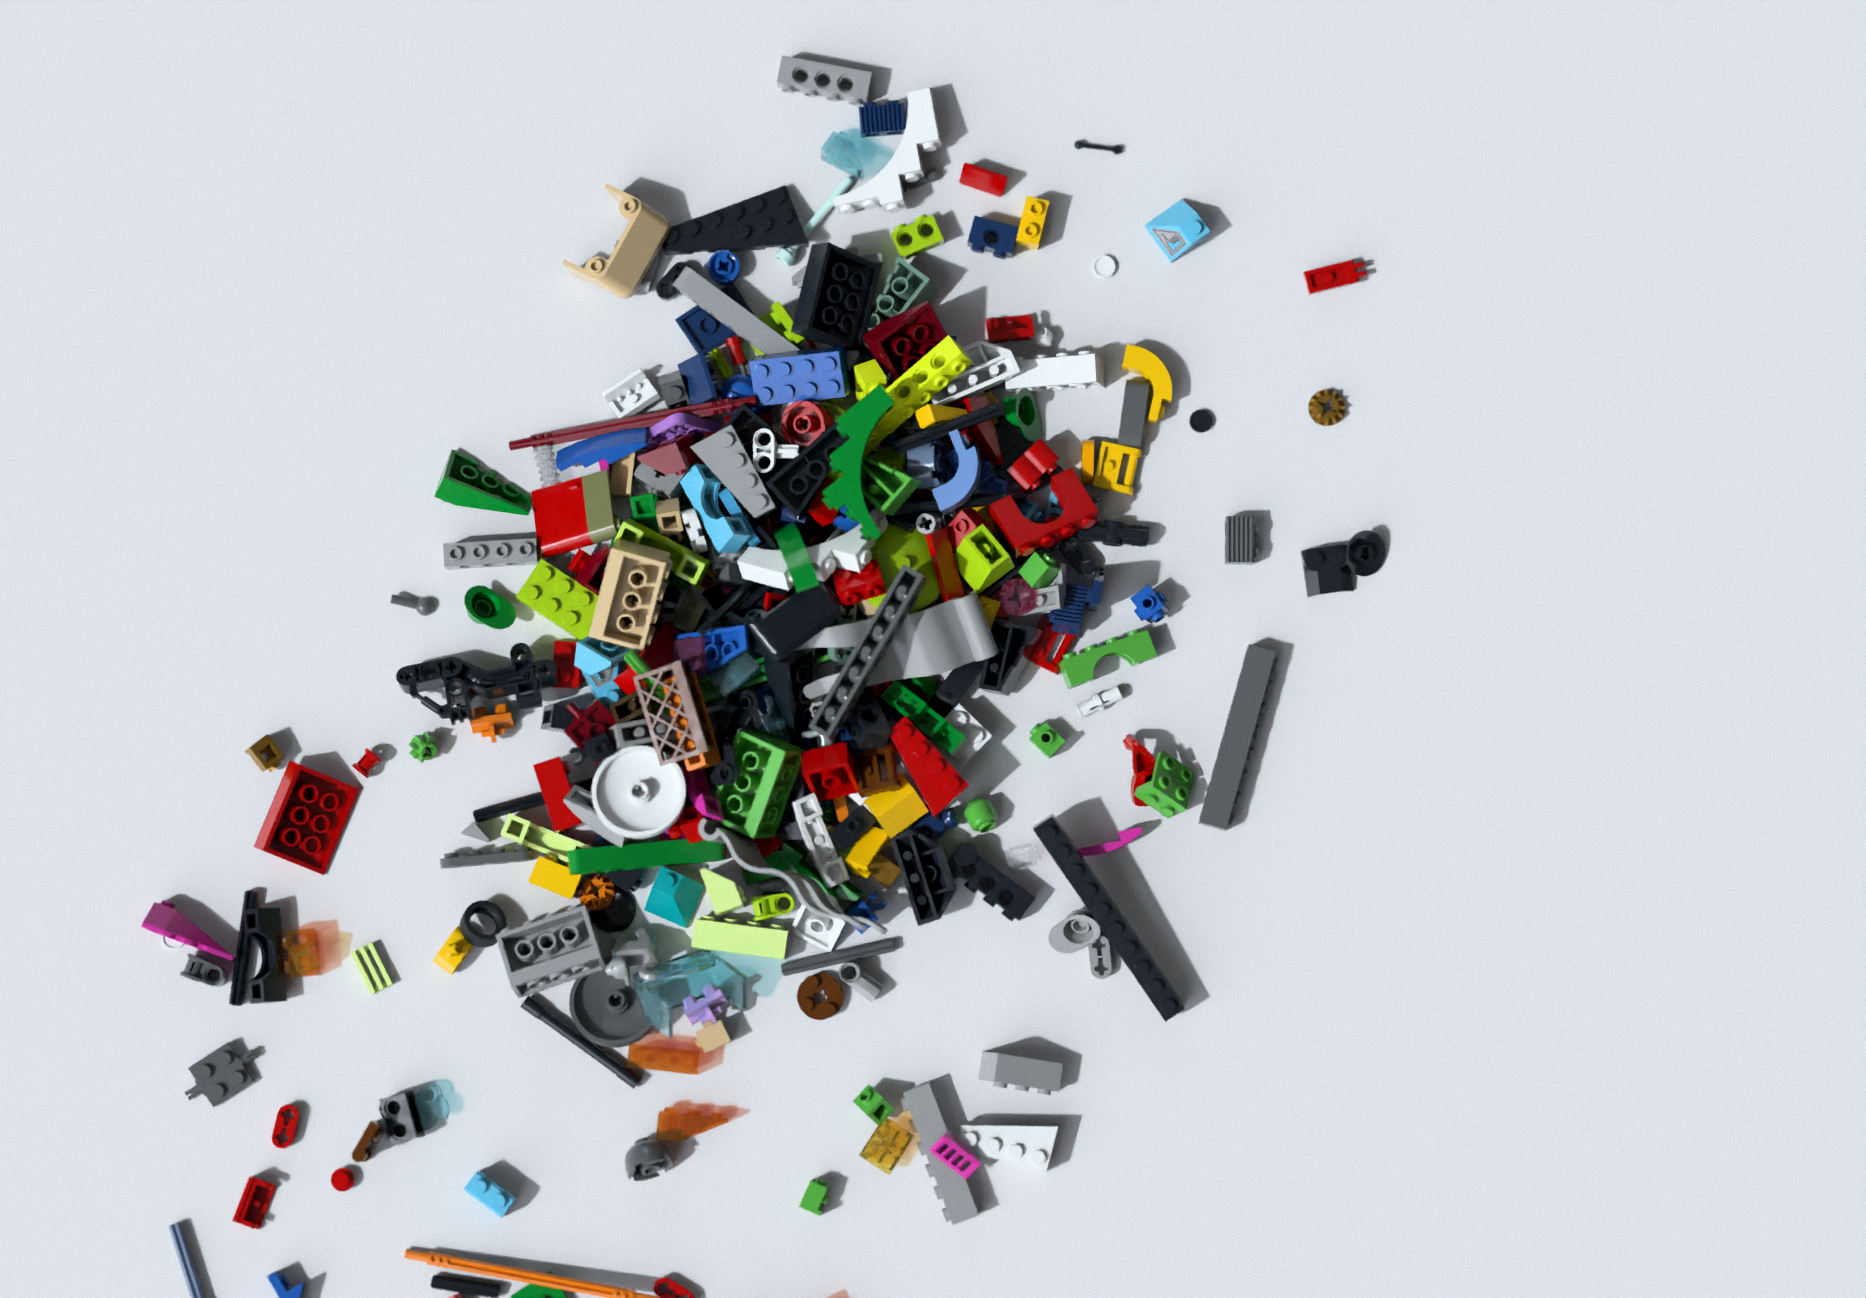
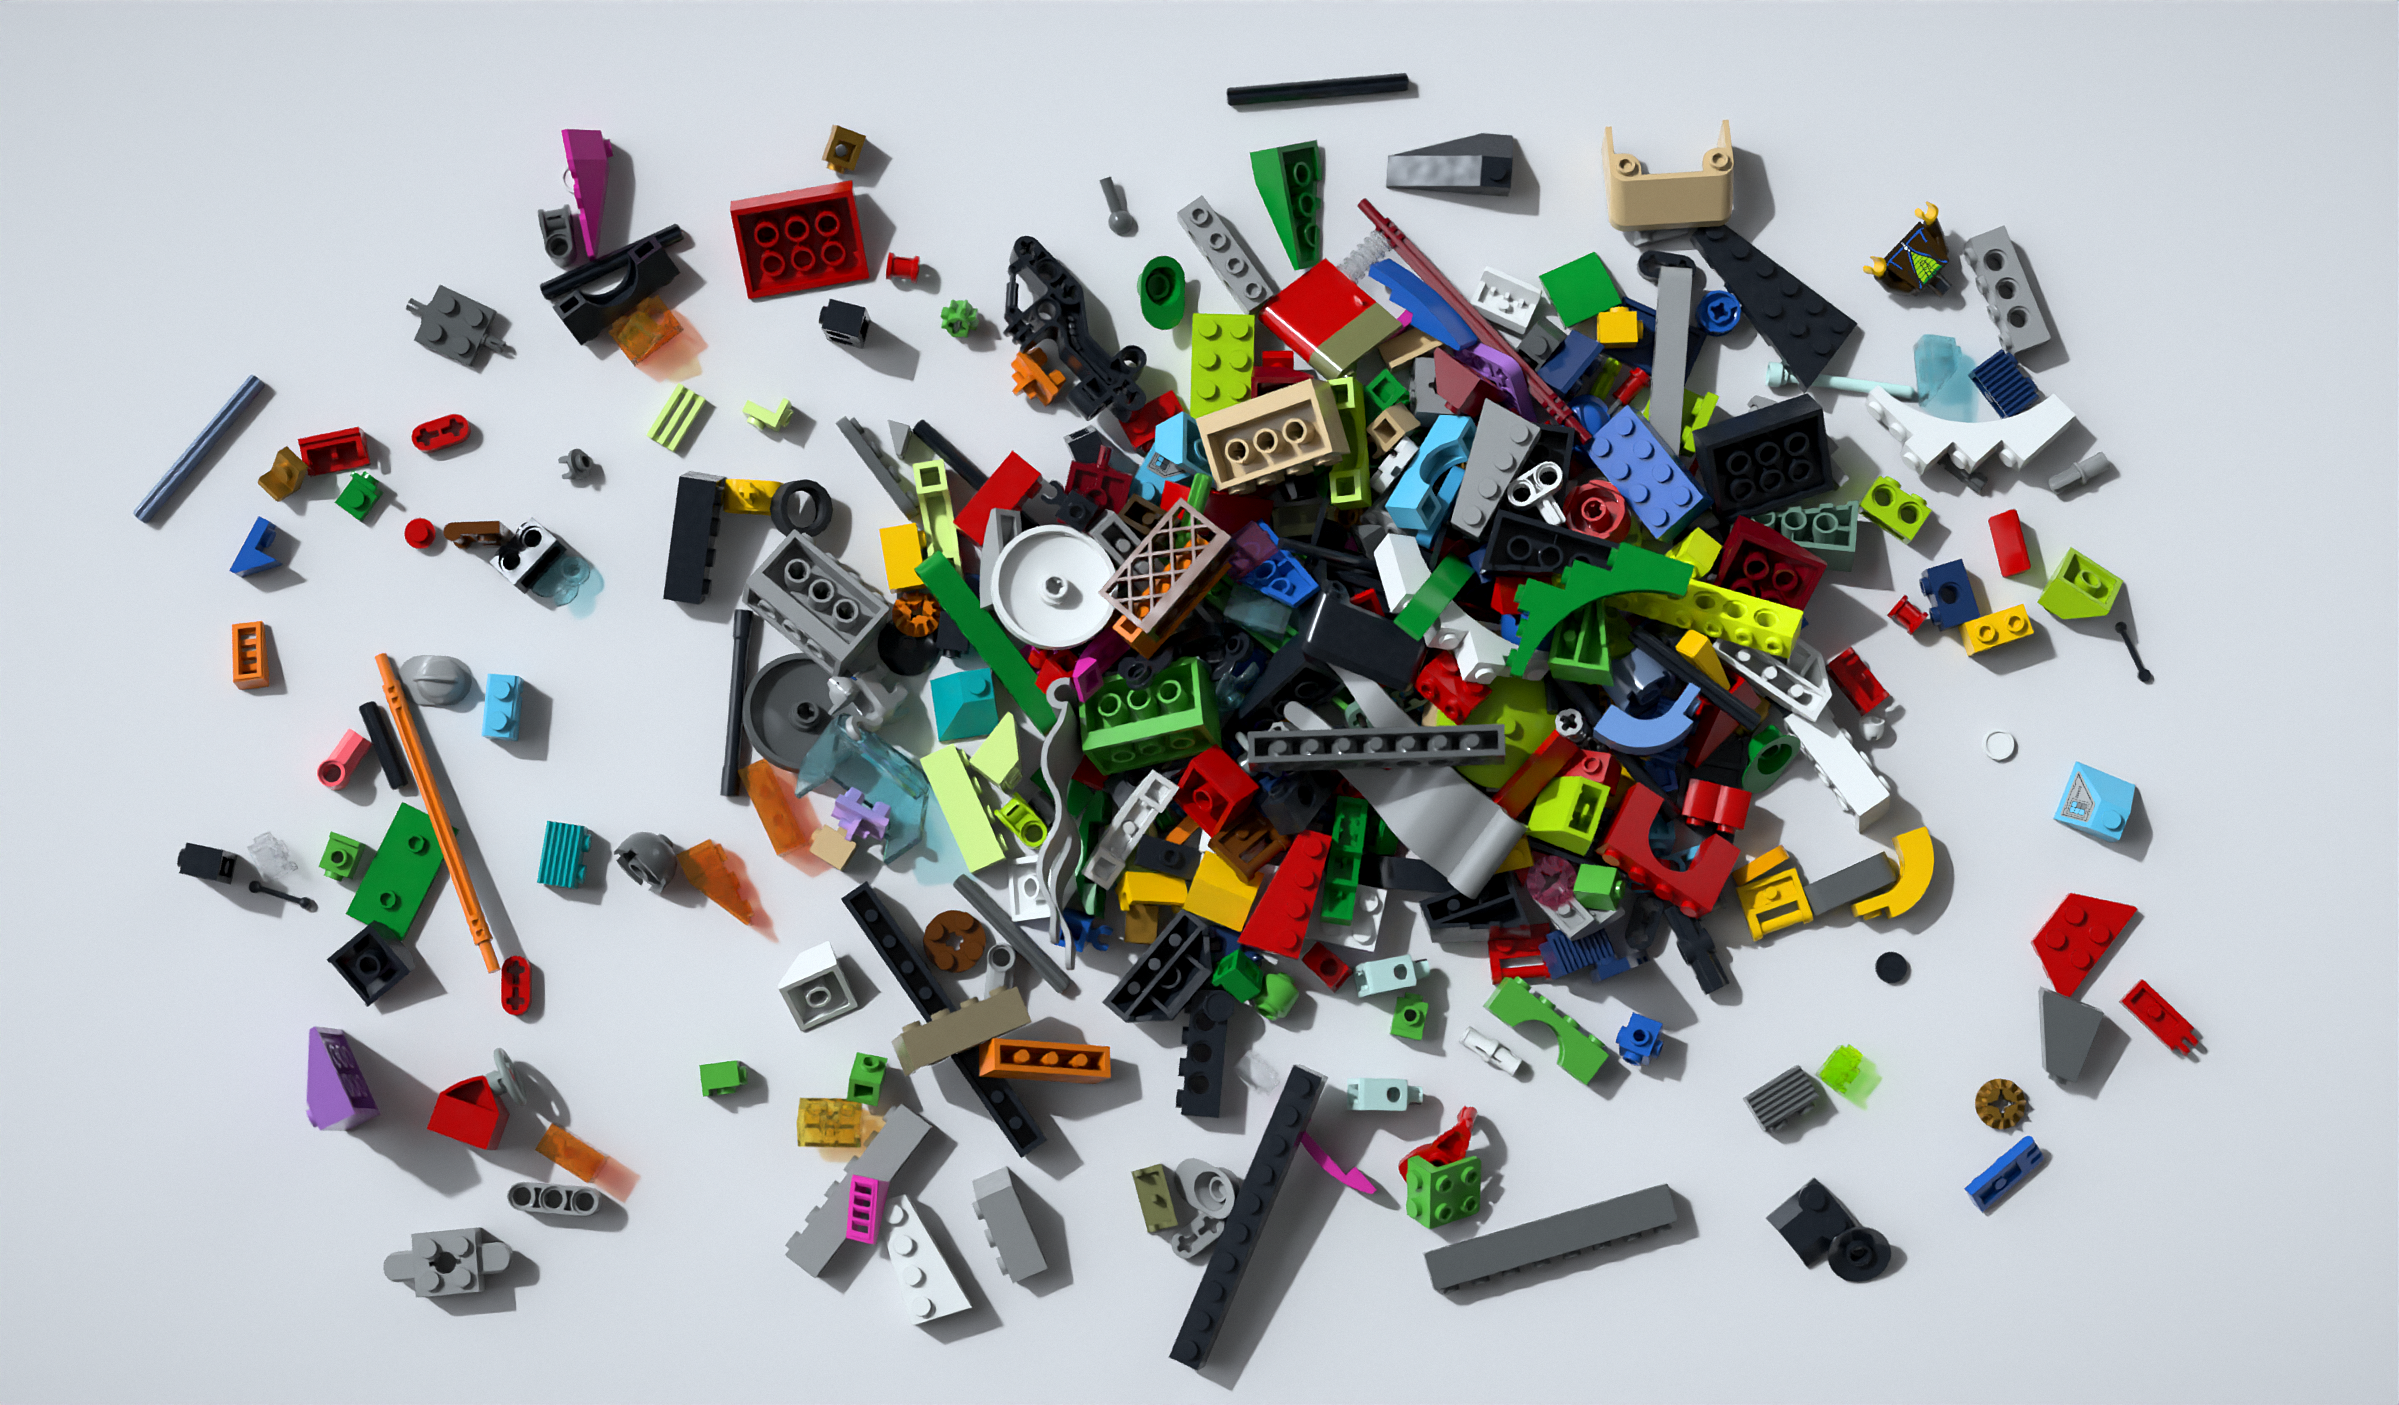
camera: 65 degrees right, 0 degrees up
(249, 1244) = (285, 476): none -> pearl gold bracket
(293, 1203) = (359, 495): none -> green bracket
(363, 1049) = (578, 463): none -> dark grey plate
(380, 822) = (845, 323): none -> black brick
(407, 913) = (761, 417): none -> yellowish green bracket
(419, 428) = (1317, 89): none -> black axle
(443, 1228) = (435, 680): none -> light grey piece
(458, 1004) = (693, 537): none -> black wedge
(527, 366) = (1464, 165): none -> black wedge
(609, 1212) = (564, 855): none -> teal brick
(654, 344) = (1580, 290): none -> green slope
(695, 335) = (1619, 328): none -> yellow brick
(768, 123) = (1915, 259): none -> torso
(795, 1101) = (816, 987): none -> white slope
(866, 1032) = (931, 998): none -> black brick
(881, 1025) = (960, 1030): none -> dark tan wedge
(932, 985) = (1044, 1061): none -> orange brick
(954, 830) = (1238, 976): none -> green brick
(966, 109) = (2079, 473): none -> light grey axle
(982, 771) = (1327, 966): none -> red leg
(988, 271) = (1907, 614): none -> red bush
(1010, 741) = (1379, 976): none -> light aqua torso
(1038, 154) = (2079, 588): none -> lime slope
(1060, 969) = (1154, 1198): none -> olive hinge
(1080, 791) = (1372, 1094): none -> light aqua torso
(1243, 491) = (1840, 1068): none -> clear neon green brick
(1254, 295) = (2078, 937): none -> red wing
(1309, 340) = (2066, 1034): none -> dark grey slope
(1370, 432) = (2004, 1173): none -> blue hinge

